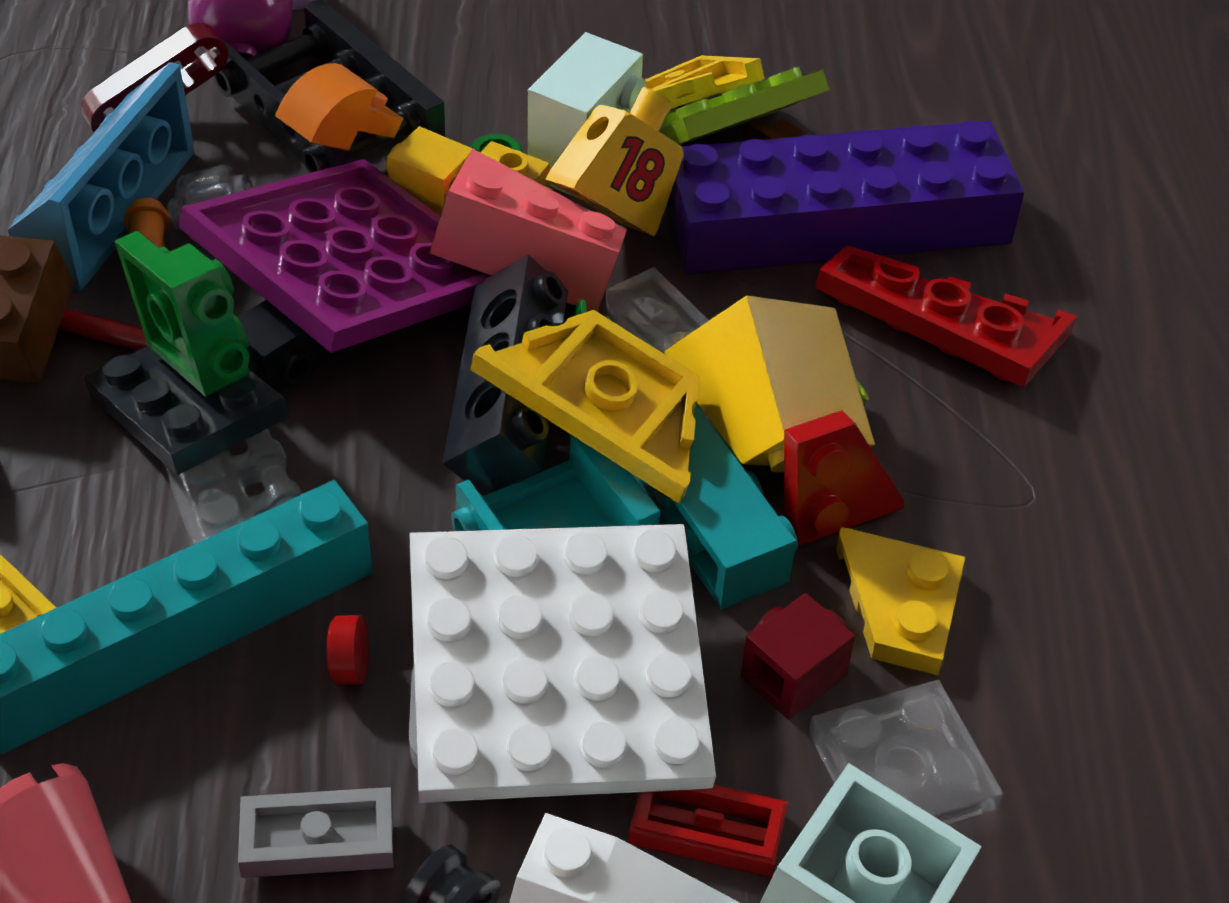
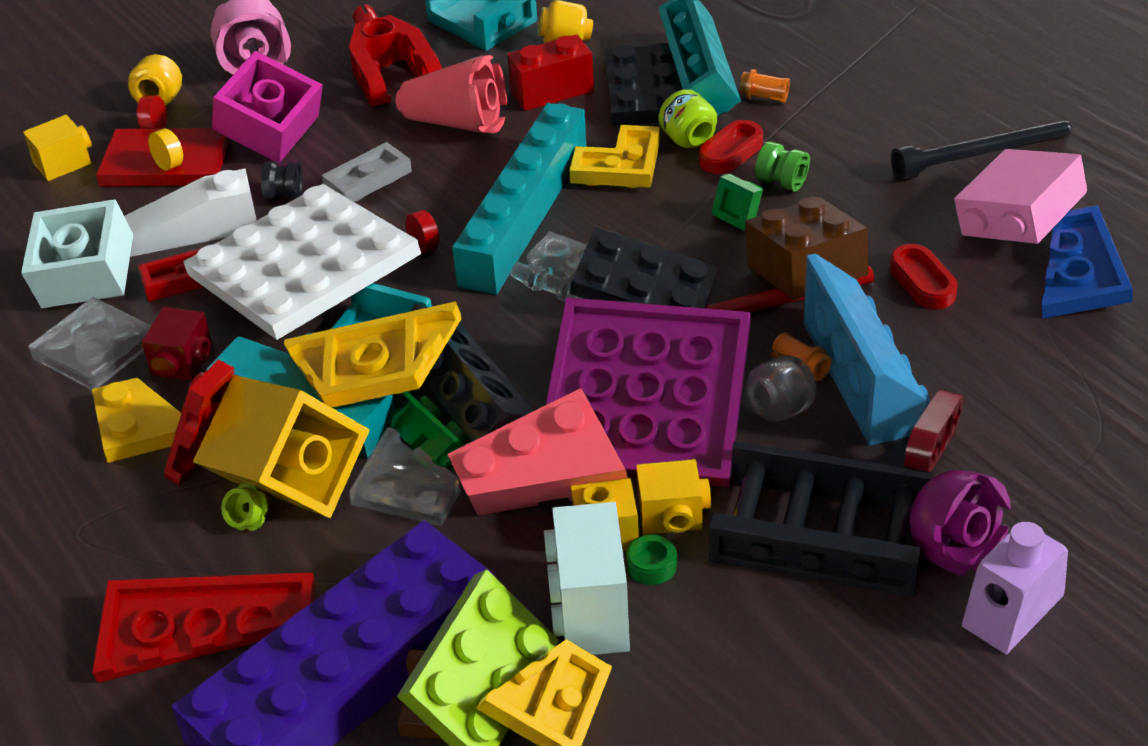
camera: 150 degrees right, 5 degrees down
(186, 311) = (656, 245): green plate -> none
(334, 104) = (749, 448): orange brick -> none
(623, 163) = (511, 522): yellow torso -> none

